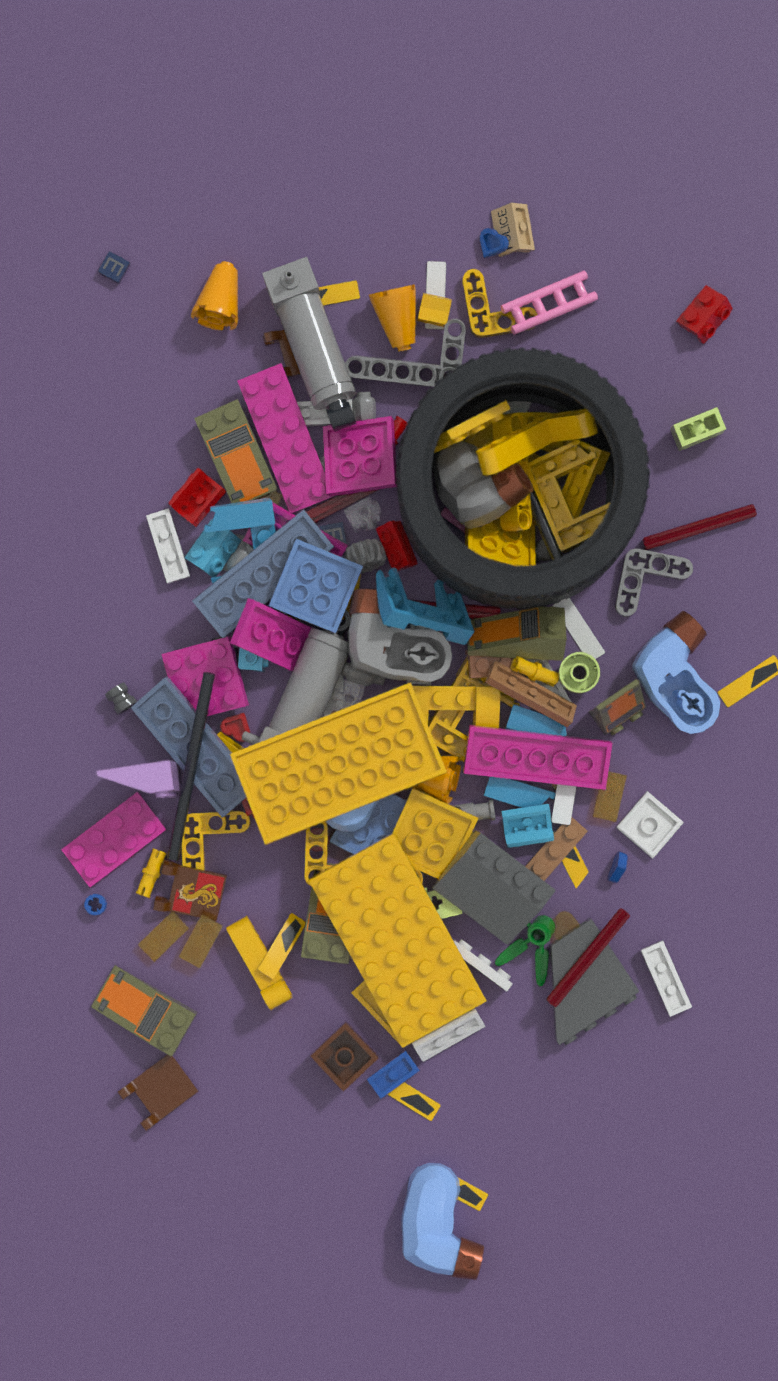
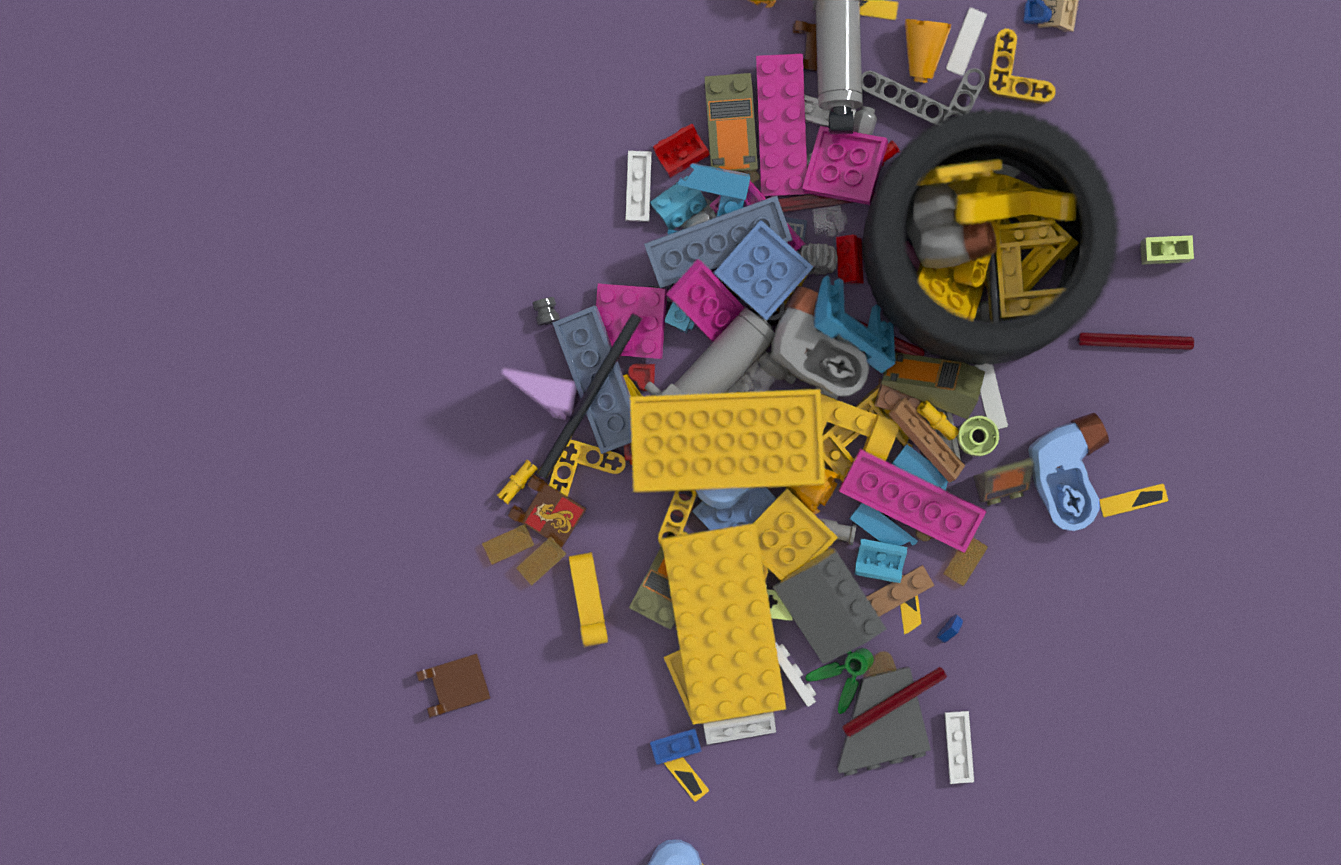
camera: 15 degrees right, 0 degrees up
(102, 900) = (463, 491): blue bush -> none
(113, 839) = (493, 439): dark pink plate -> none
(144, 1010) = (466, 606): slope -> none
(282, 946) = (614, 591): yellow sticker -> none
(344, 1056) = (637, 713): reddish brown brick -> none
(434, 310) = (960, 54): yellow piece -> none
(542, 314) = (1077, 73): bright pink bar -> none
(563, 804) = (920, 552): white sticker -> none
(638, 572) = (1064, 362): light grey beam -> none
(649, 824) = (993, 600): white tile -> none
(705, 314) = (1211, 146): red bracket -> none

